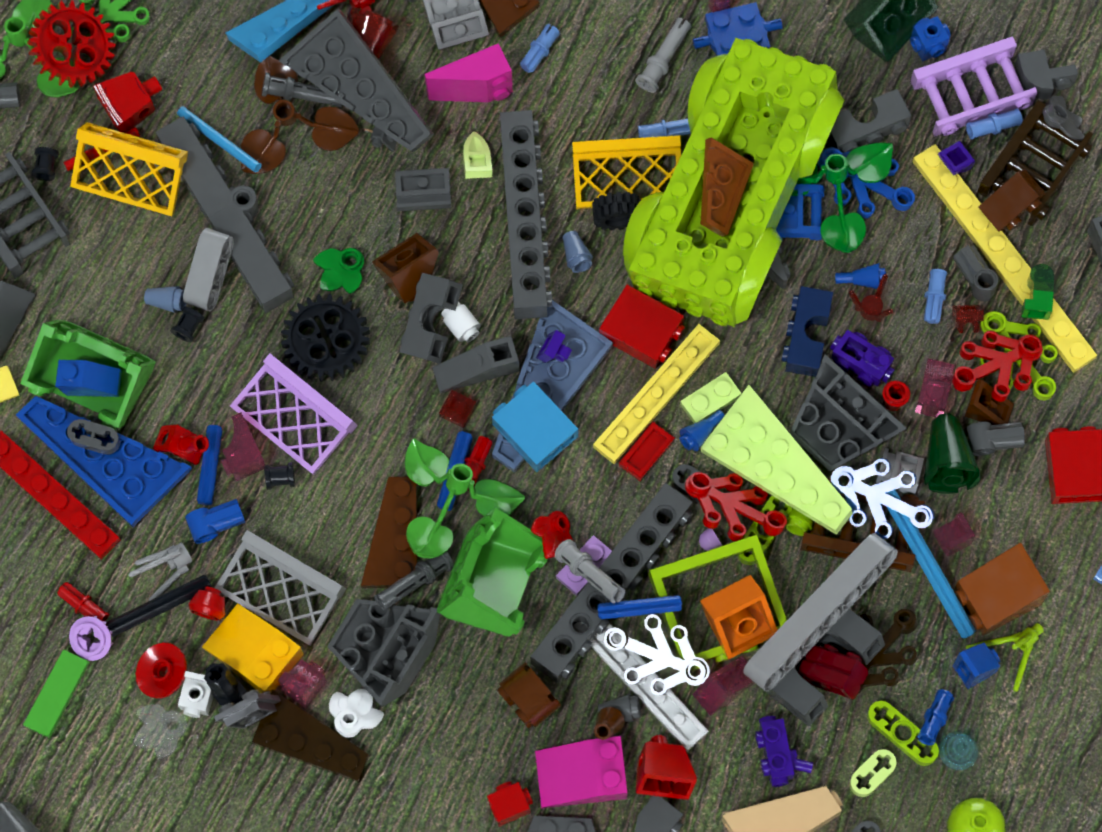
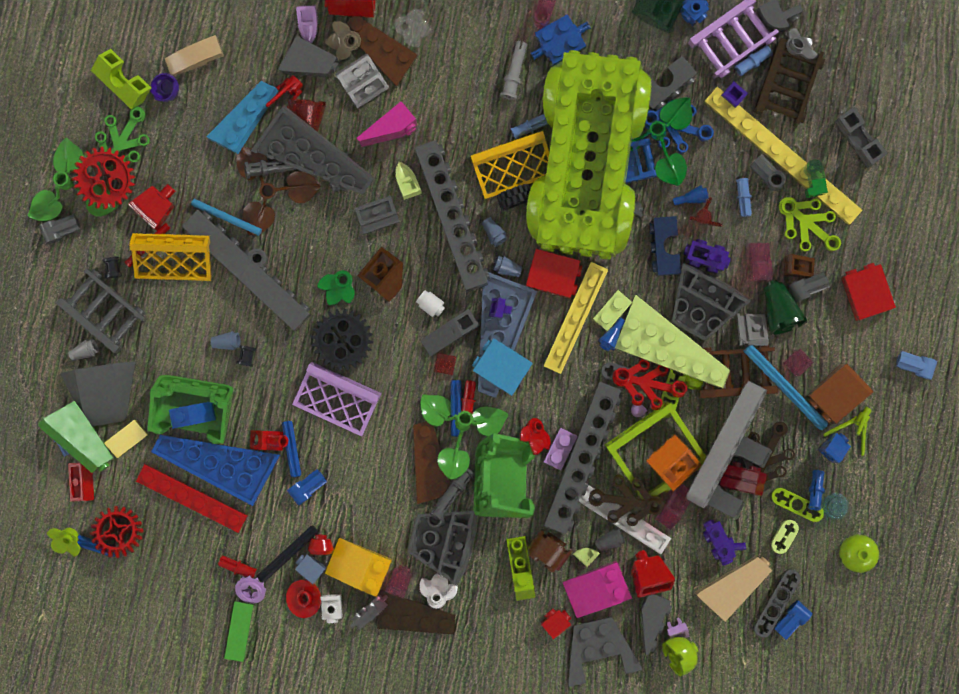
camera: 15 degrees left, 15 degrees up
(95, 430) = (208, 459): dark grey beam -> none
(156, 732) = (312, 638): clear plate -> none
(174, 556) = (289, 519): light grey plant -> none
(184, 631) = (309, 567): none -> sand blue brick
(208, 269) = (249, 315): light grey beam -> none
(223, 684) = (350, 600): black piece -> none
(242, 454) = (312, 436): clear pink arch -> none
(279, 475) = (340, 444): black bush -> none
(293, 567) = (369, 504): light grey fence -> none
(431, 296) = (407, 324): dark grey arch -> none
(480, 715) = (520, 568): none -> lime slope
(539, 48) = (427, 89): medium blue axle -> none
(579, 723) = (586, 555): none -> yellowish green tile
(580, 301) = (506, 267): none -> sand blue cone
(582, 565) = (560, 454): light grey pin -> none
(608, 722) = (606, 555): reddish brown cone -> none
(639, 607) = (607, 474): blue axle -> none
(646, 451) = (579, 359): red tile -> none
(723, 186) = (584, 163): dark orange wing -> none
(877, 495) = (743, 354): plant -> none
(896, 390) = (740, 274): red cone -> none
(968, 313) = (769, 205): clear red tile -> none
(998, 361) = (801, 235): red plant -> none
(1012, 201) = (780, 117): reddish brown brick -> none

